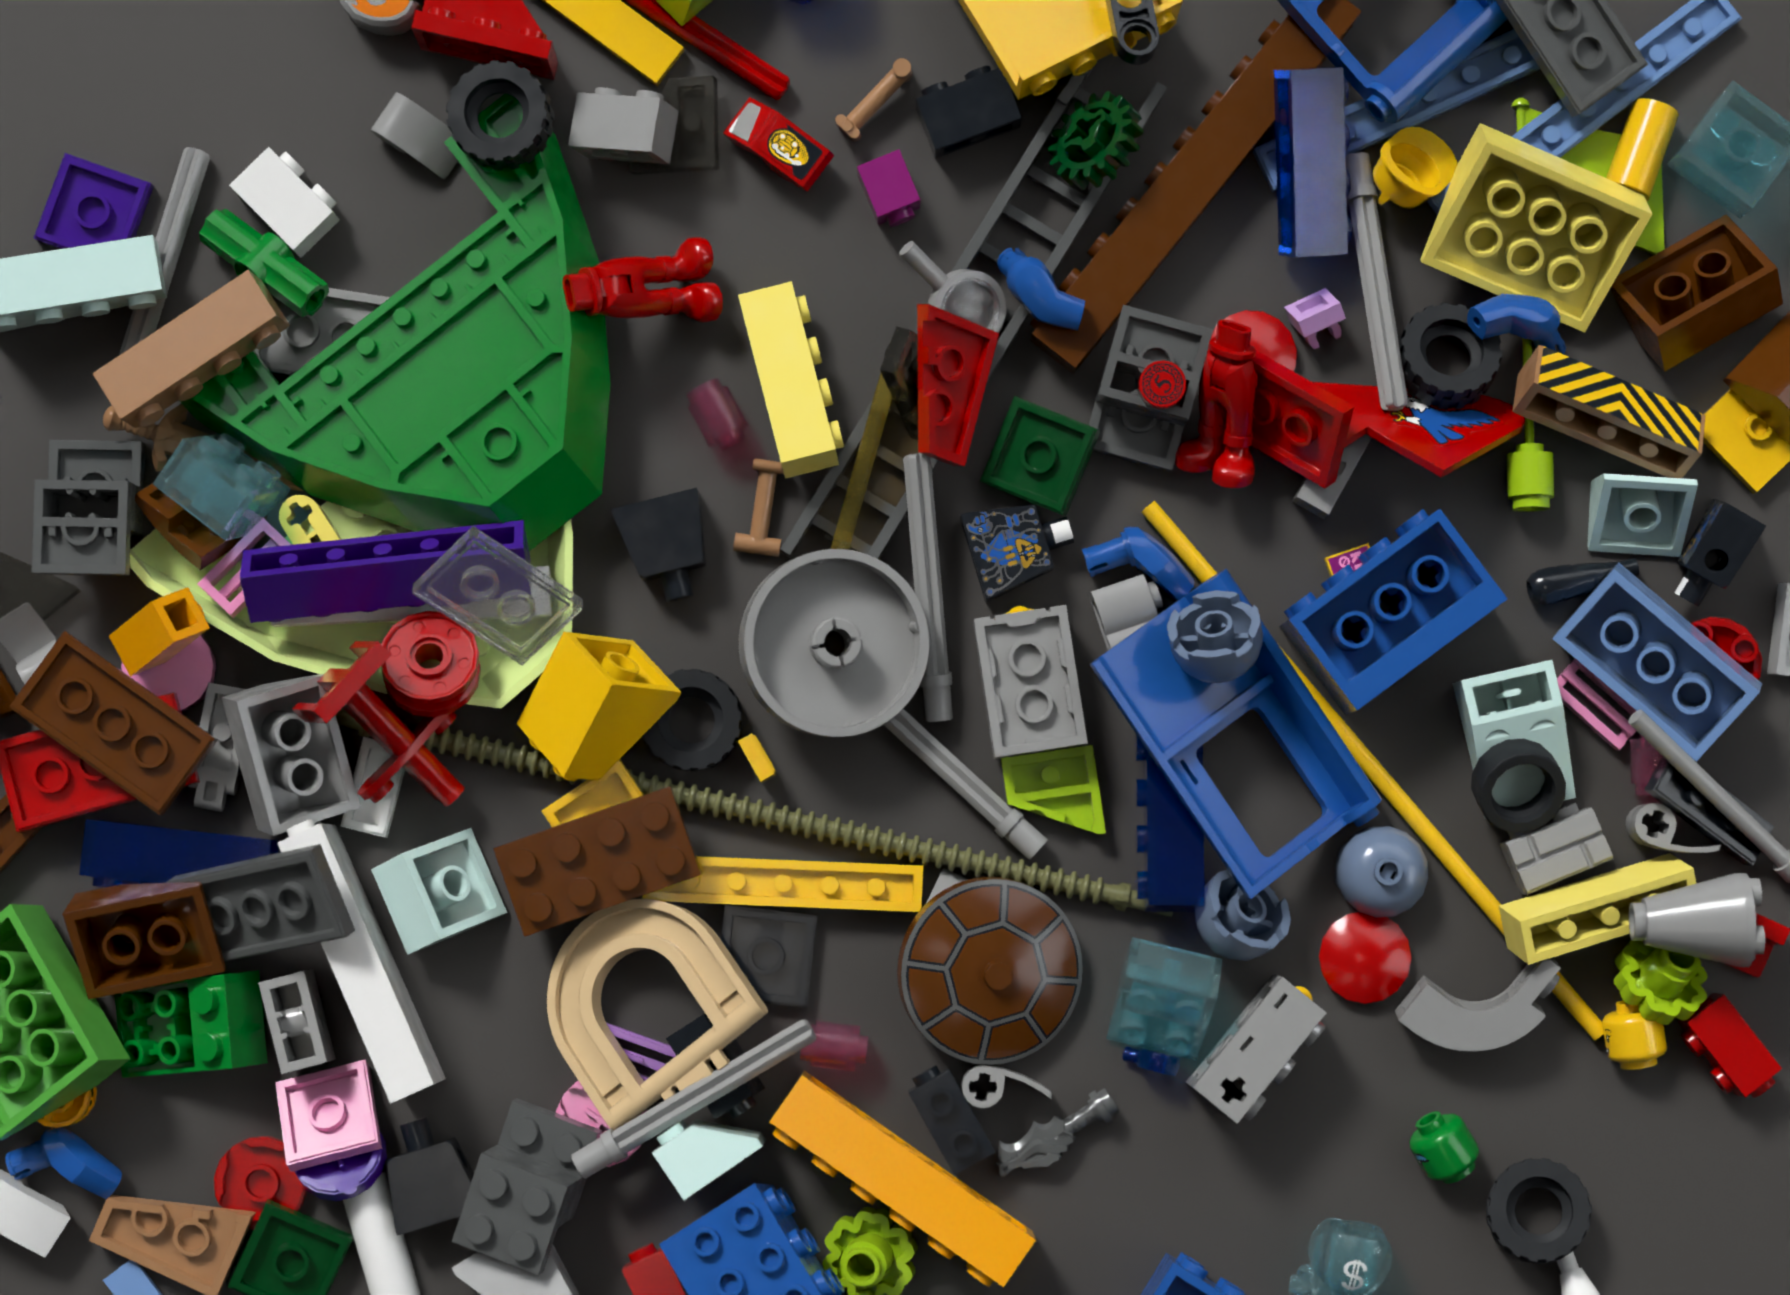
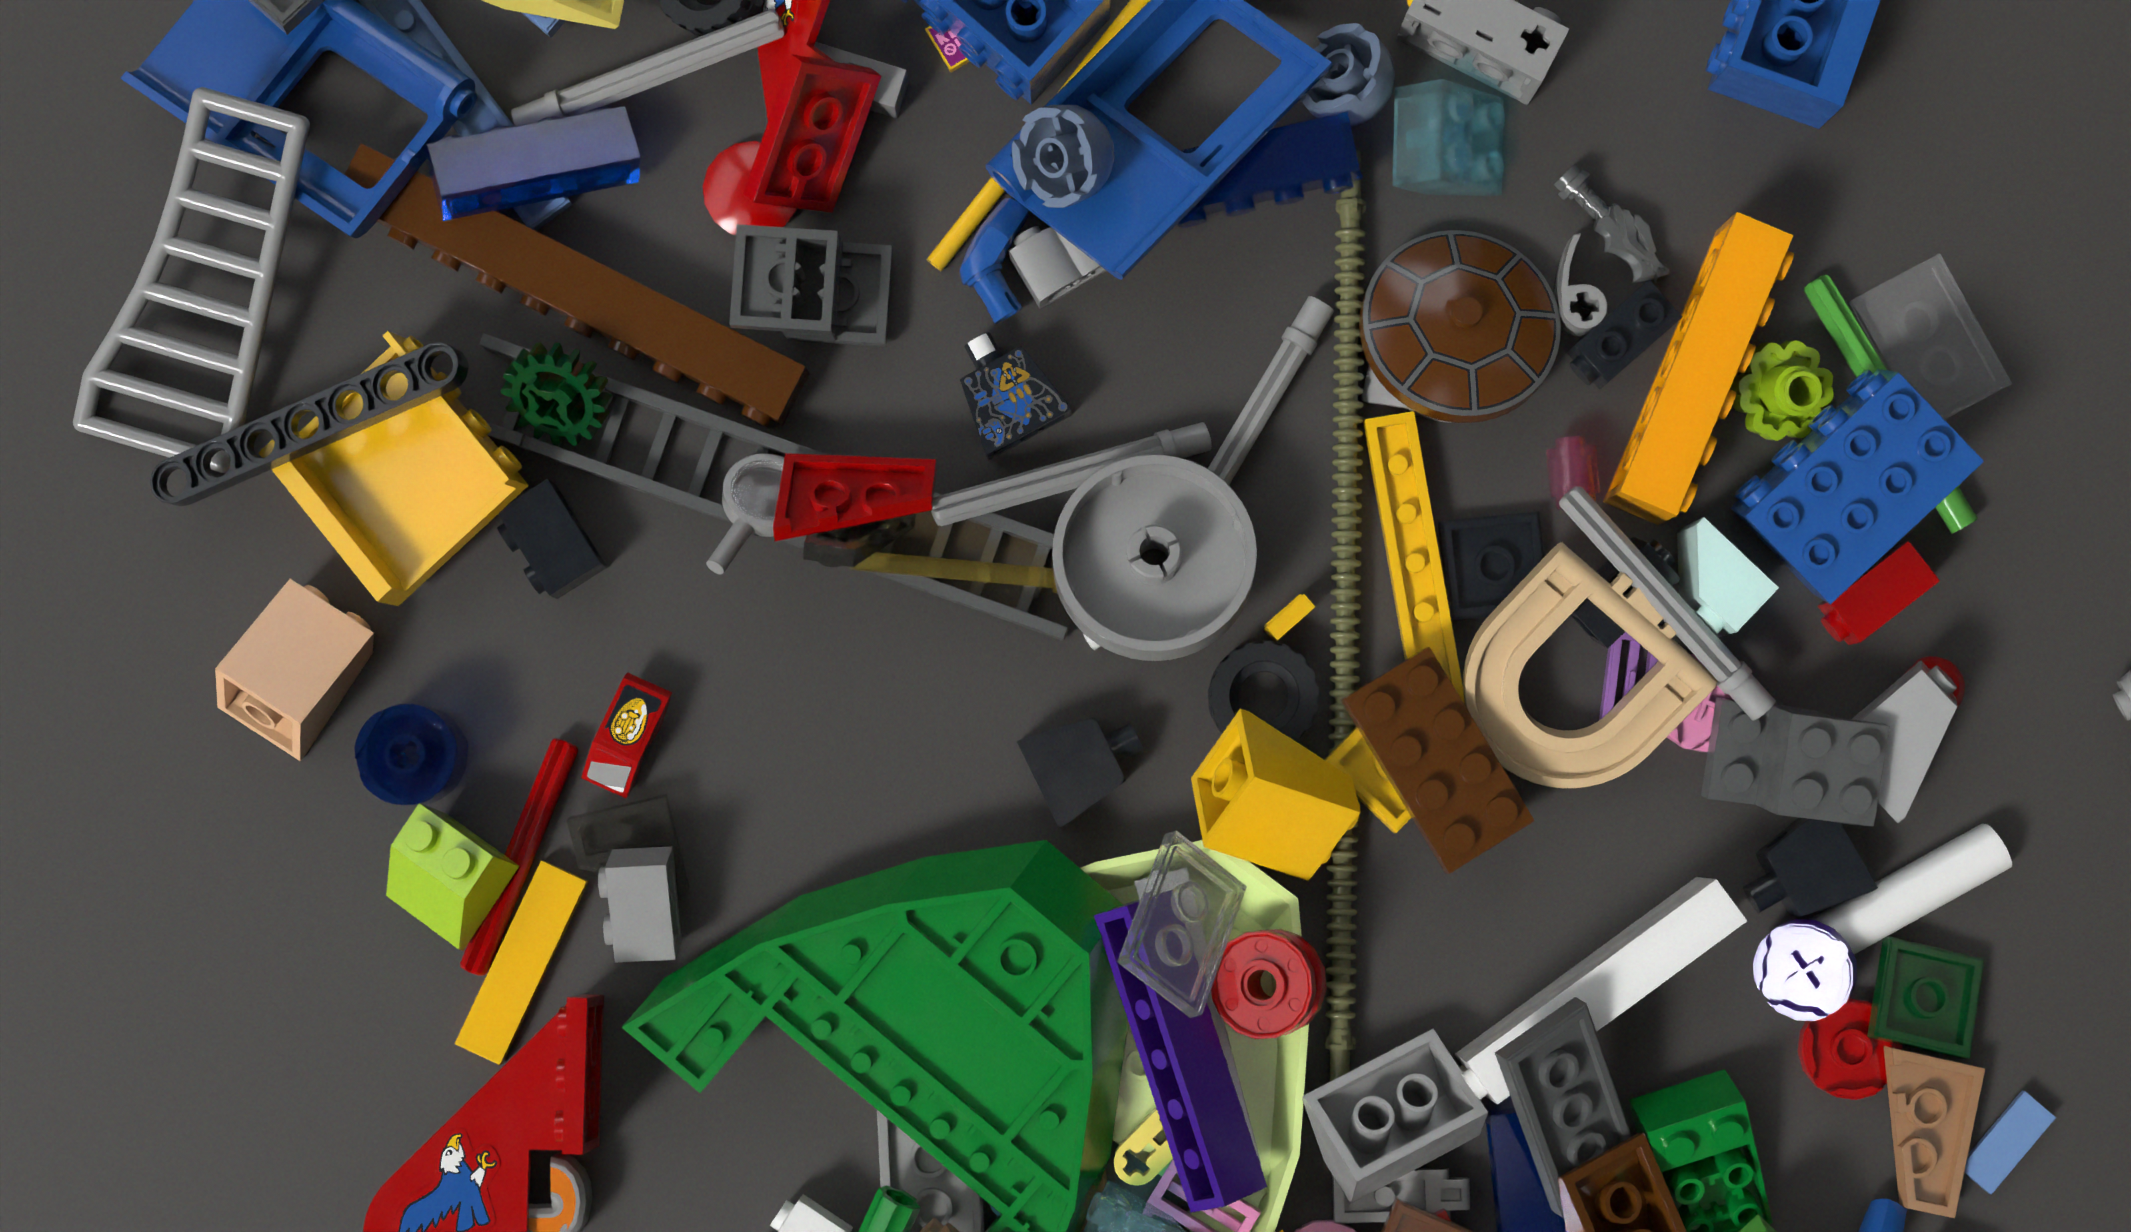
camera: 100 degrees left, 0 degrees up
(297, 1021) = (1675, 1045): light grey brick -> none
(328, 1115) = (1766, 990): bright pink tile -> none
(348, 691) = (1320, 1061): red piece -> none
(373, 817) = (1402, 1017): white tile -> none
(417, 133) = (694, 1128): light grey panel -> none
(438, 890) = (1503, 925): light aqua slope -> none
(492, 80) = (649, 1074): black tyre -> none
(619, 290) = (817, 869): red piece -> none
(717, 414) = (932, 738): clear pink brick -> none
(758, 541) = (1056, 667): medium nougat piece -> none
(789, 379) = (879, 667): light yellow brick -> none
(875, 99) = (559, 643): medium nougat piece -> none
(889, 189) = (651, 606): magenta brick -> none
(1029, 681) = (1148, 346): light grey piece -> none
(1037, 292) = (731, 421): blue arm -> none
(1040, 455) = (905, 387): dark green tile -> none
(1056, 786) = (1250, 298): lime wing -> none
(1152, 1060) = (1514, 140): clear blue piece -> none
(1162, 384) = (807, 264): red tile -> none
(1225, 410) = (790, 199): red piece -> none
(1315, 314) = (694, 129): lavender tile -> none
(1413, 167) = (518, 57): yellow piece -> none

